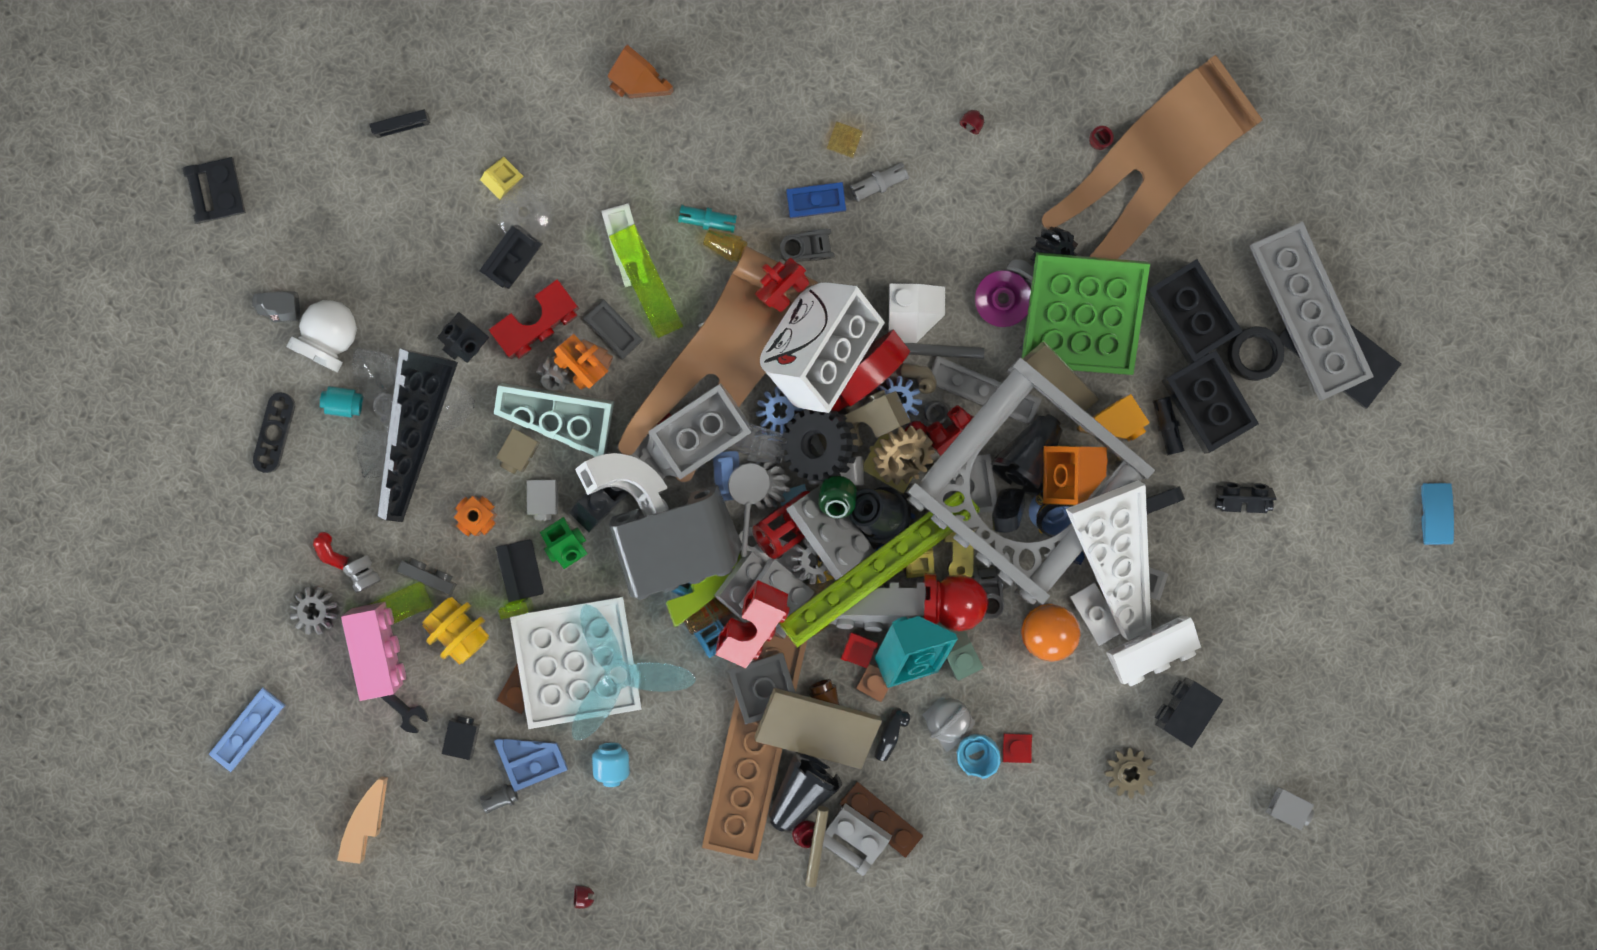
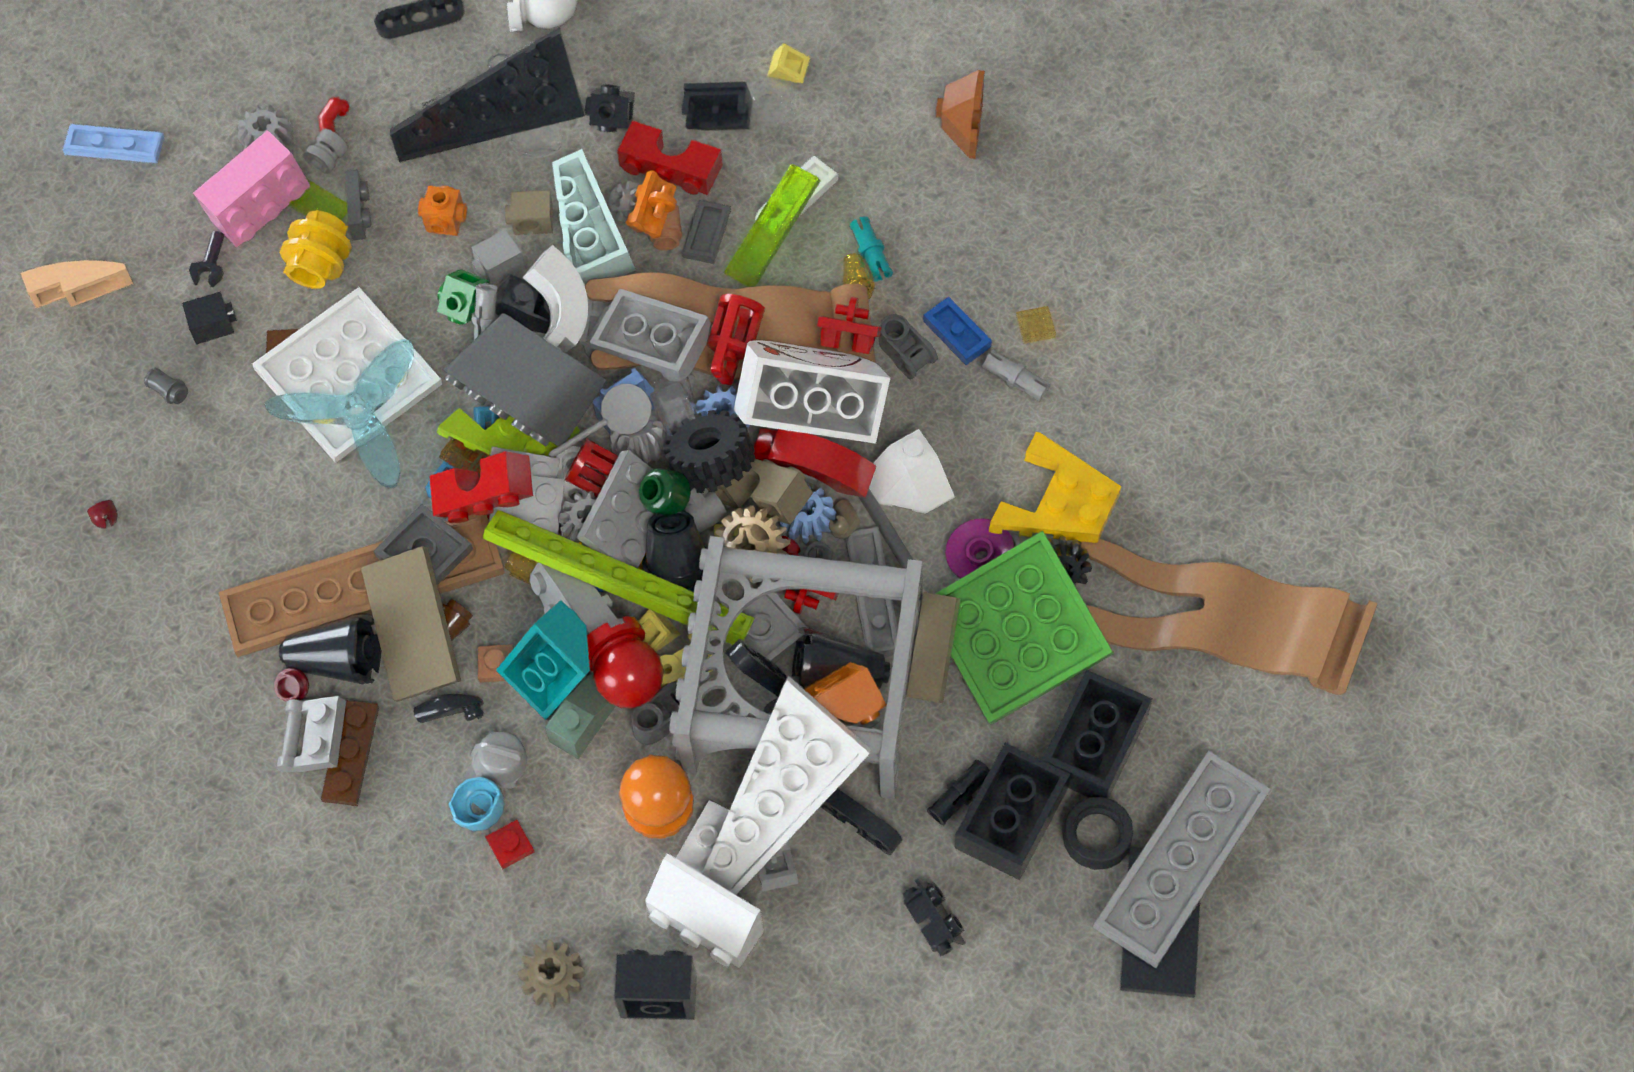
camera: 65 degrees right, 25 degrees down
(341, 402) = (481, 46): teal brick -> none
(515, 608) = (369, 284): clear neon green tile -> none
(519, 570) = (410, 278): black panel -> none
(530, 761) = (220, 392): medium blue wing -> none
(595, 538) = (485, 308): none -> light grey pin
(610, 764) = (259, 462): medium azure head -> none
(740, 377) = (721, 340): none -> red piece
(816, 847) = (282, 699): dark tan bar -> none
(858, 650) = (517, 618): red panel -> none
(973, 118) = (1139, 421): dark red hinge -> none
(1008, 207) = (1073, 504): none -> yellow wing
(1104, 134) = (1217, 552): dark red hinge -> none
(1122, 419) = (930, 727): light orange slope -> none

